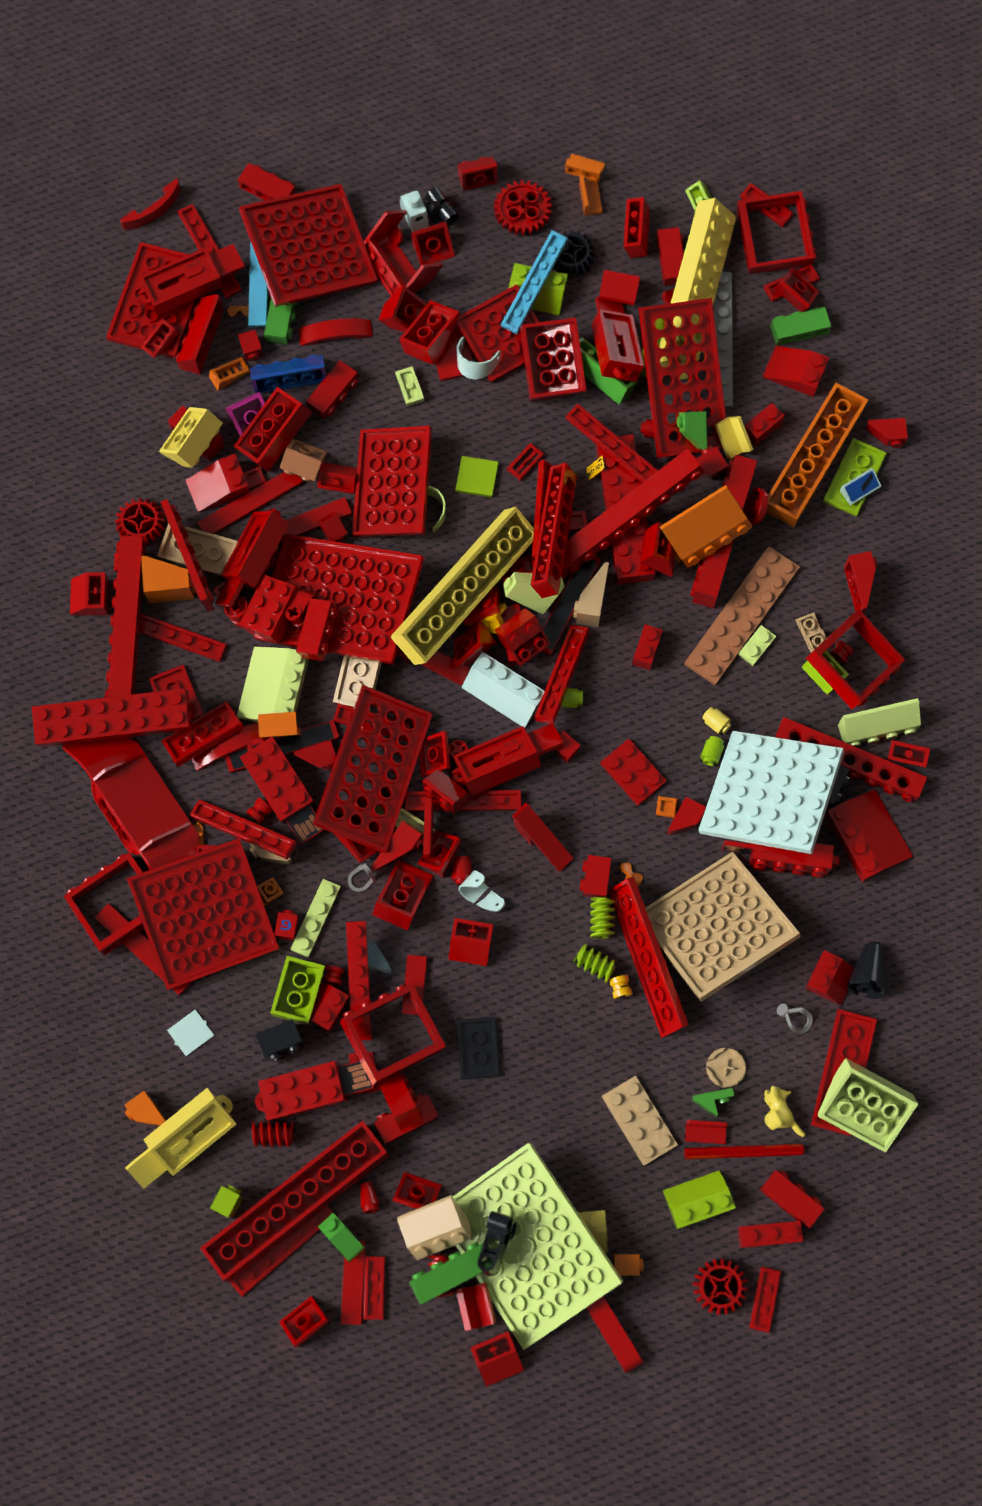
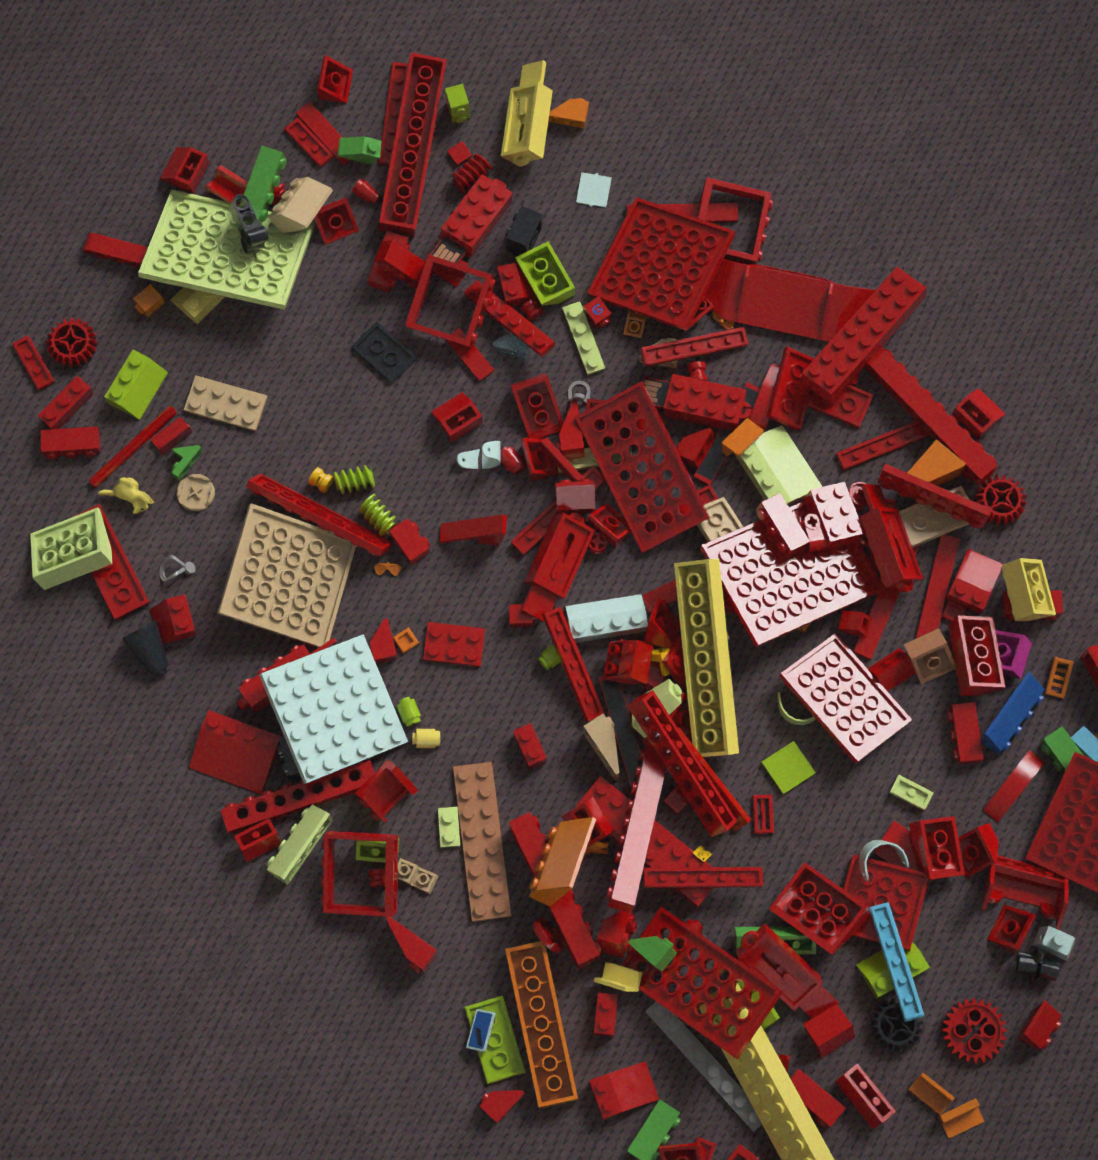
camera: 135 degrees right, 0 degrees up
(250, 345) = (1064, 711): red brick -> none
(264, 1162) = (459, 153): none -> red tile
(784, 707) = (384, 790): none -> red panel

